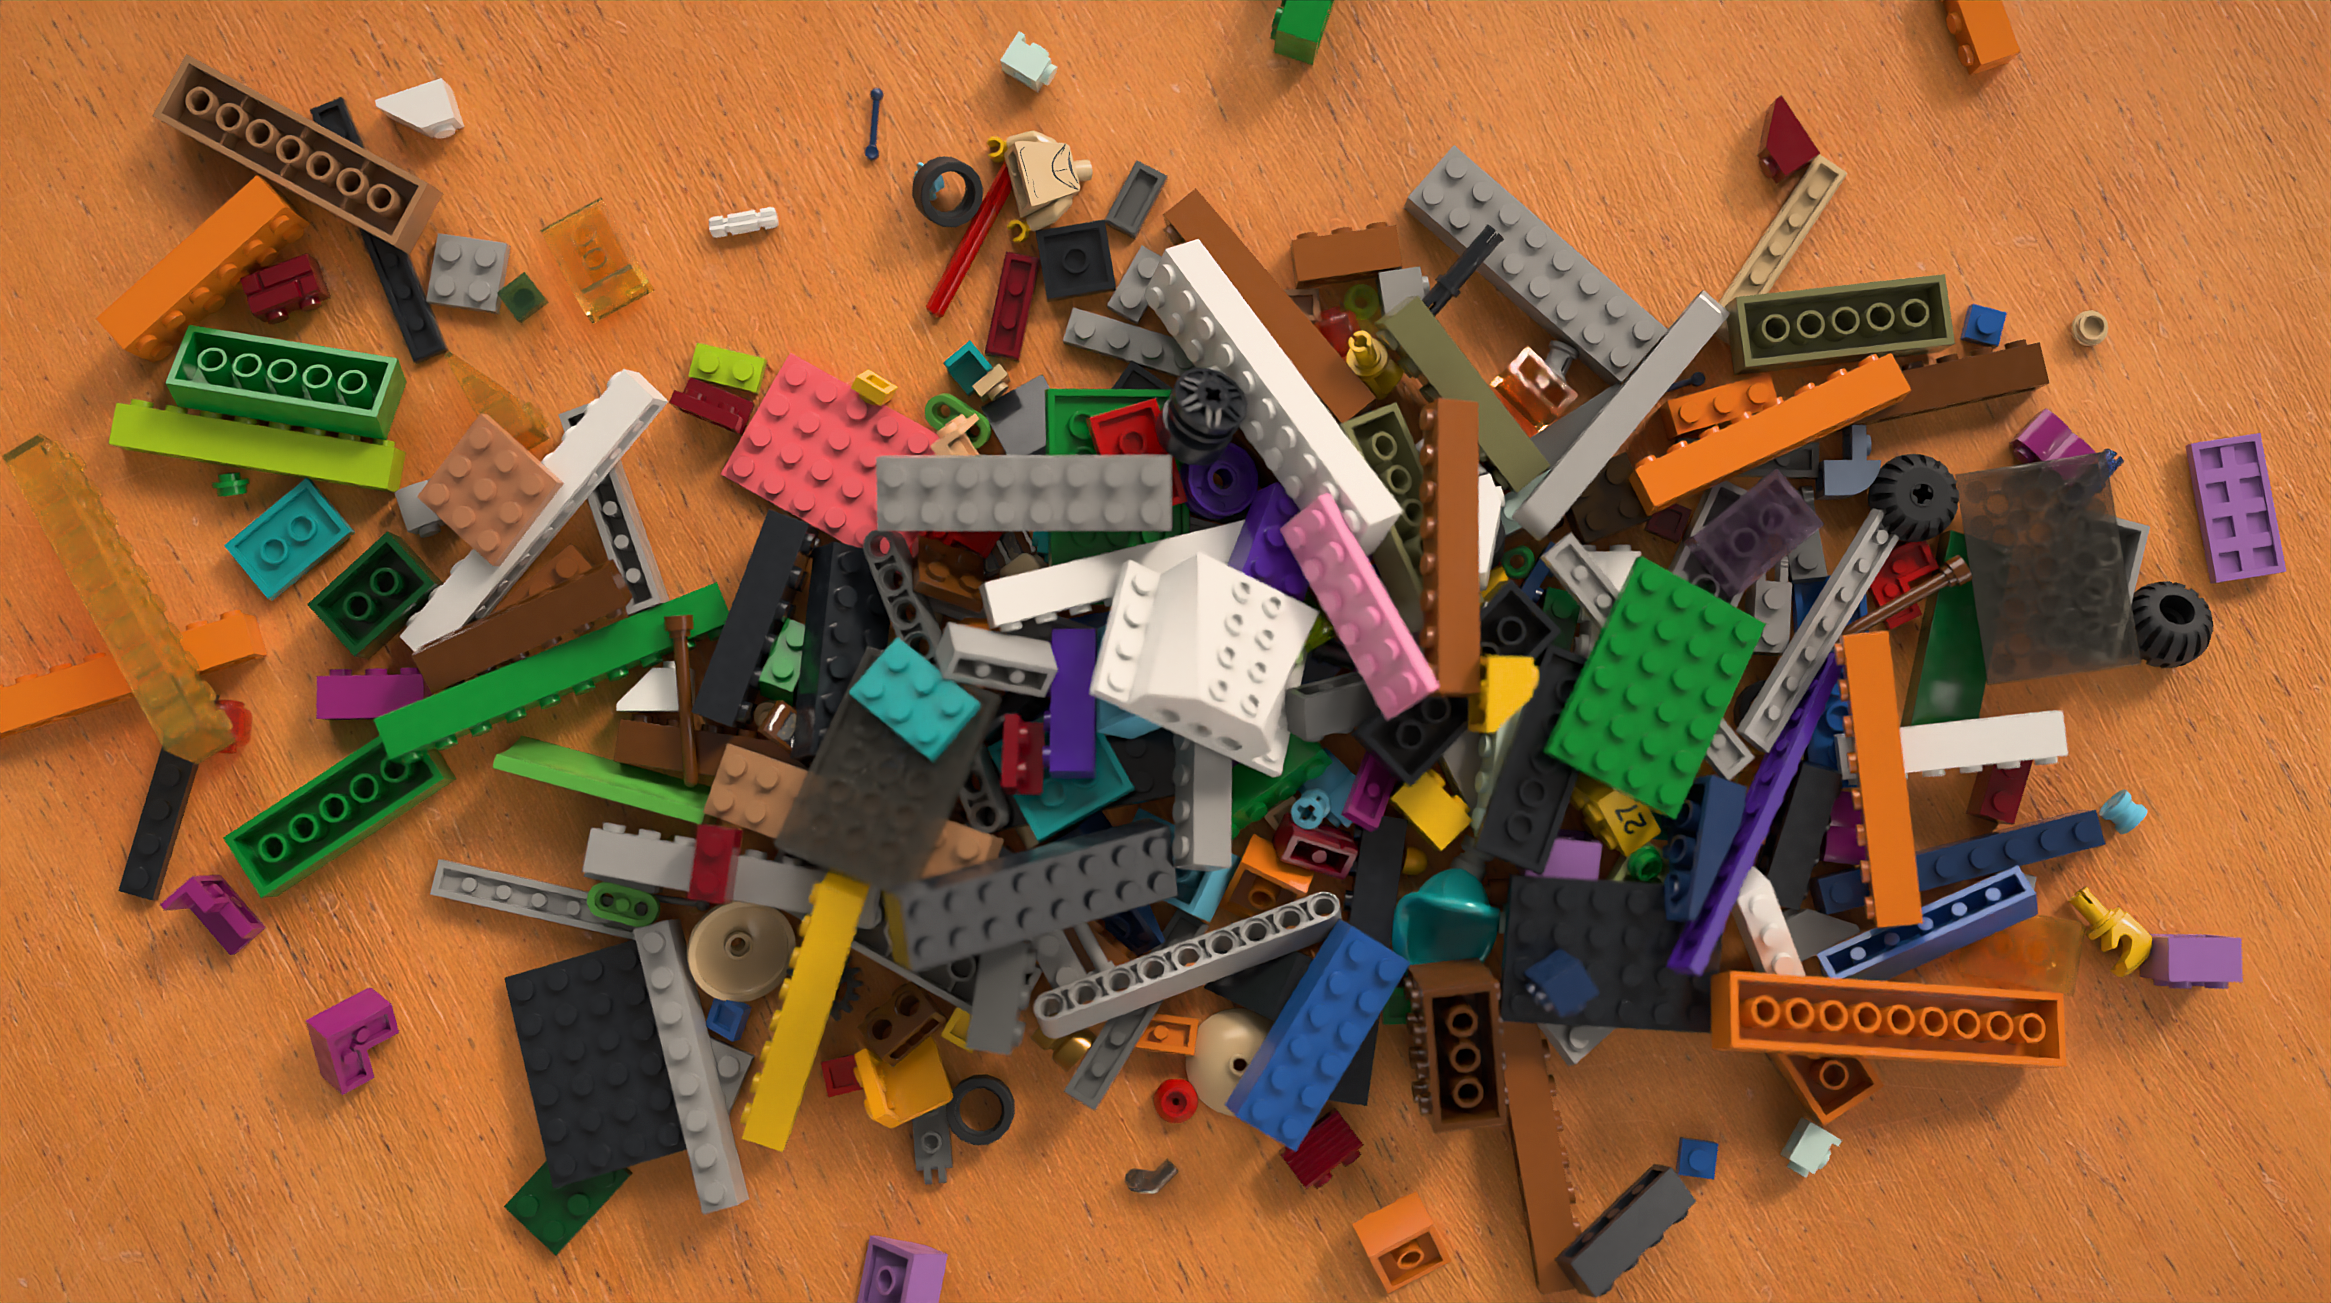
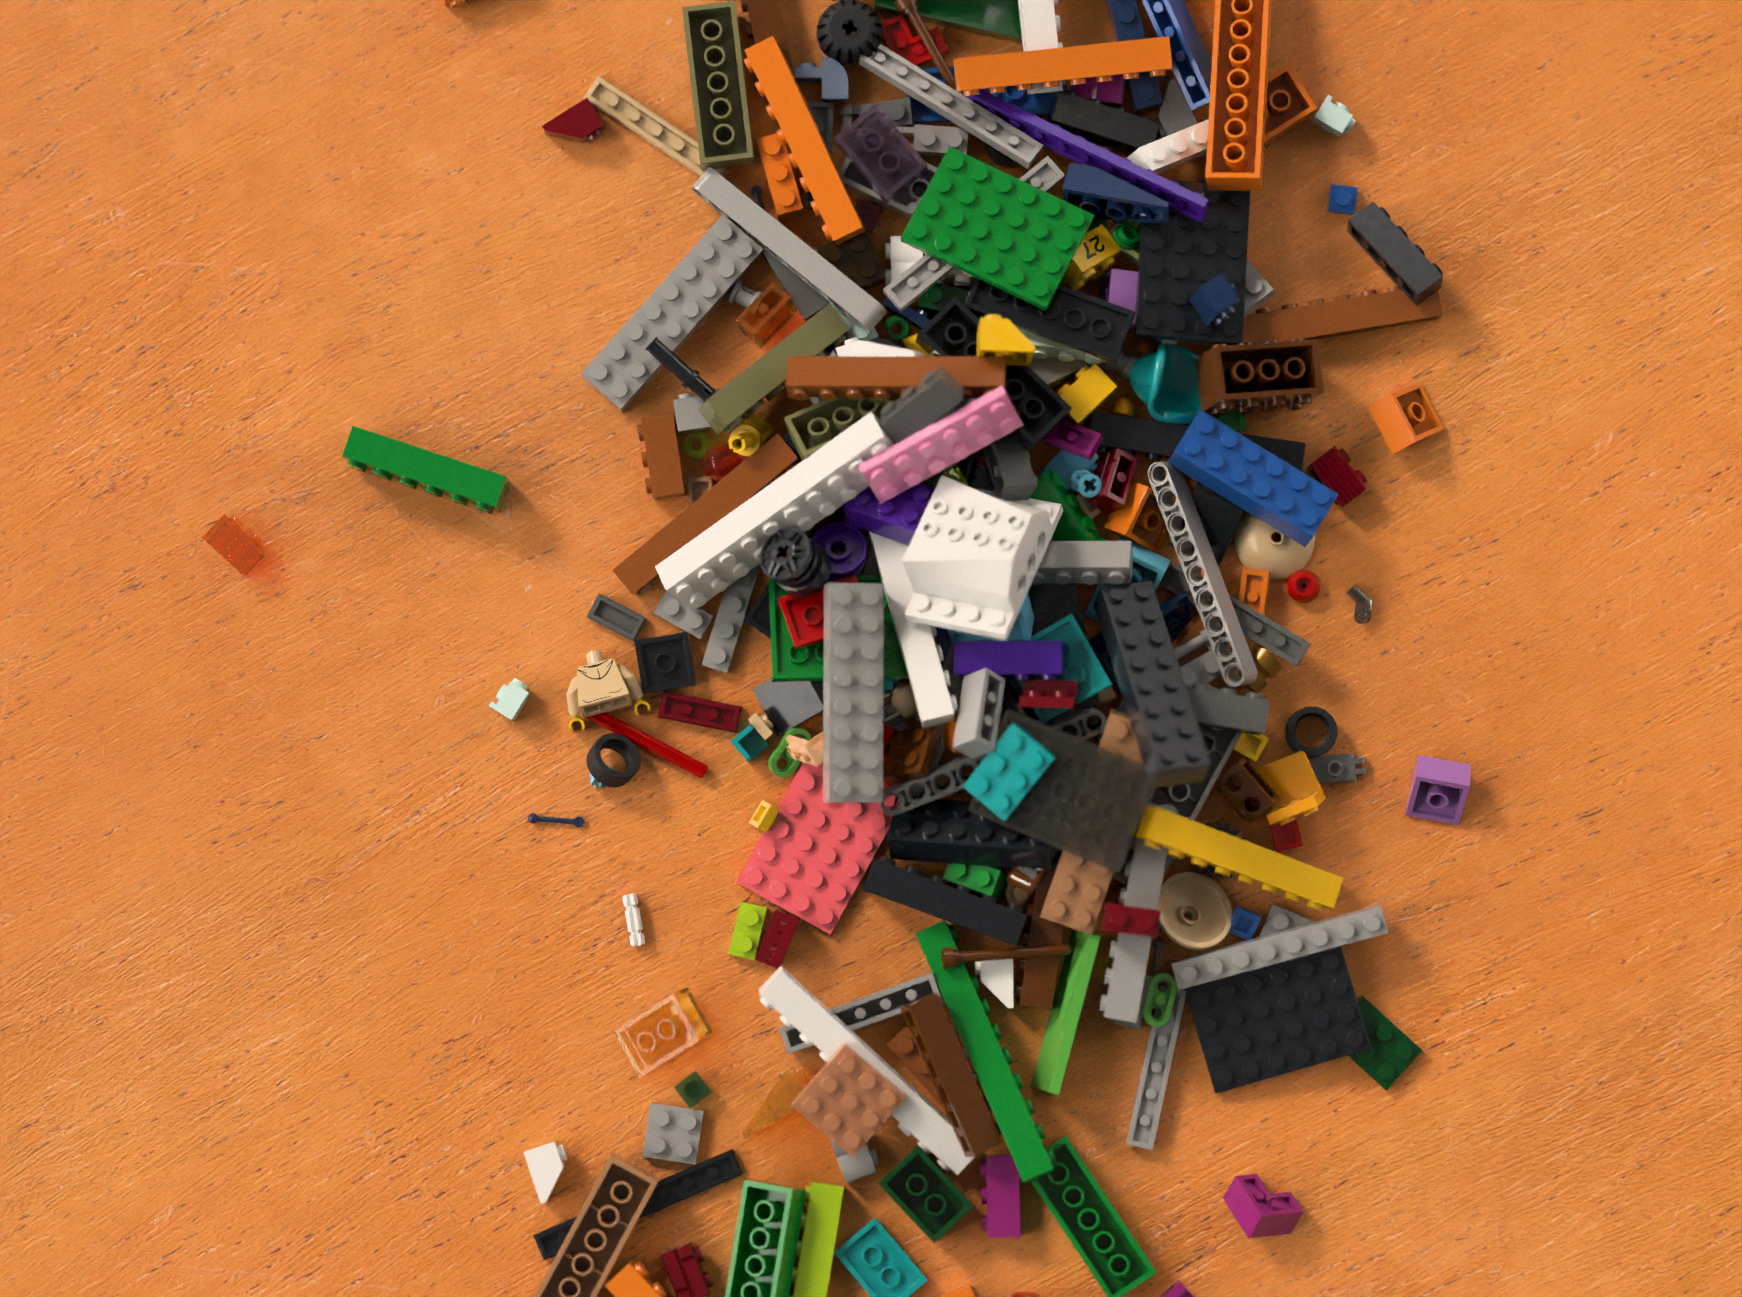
camera: 90 degrees left, 0 degrees up
(1412, 578) = (921, 405): none -> dark grey brick

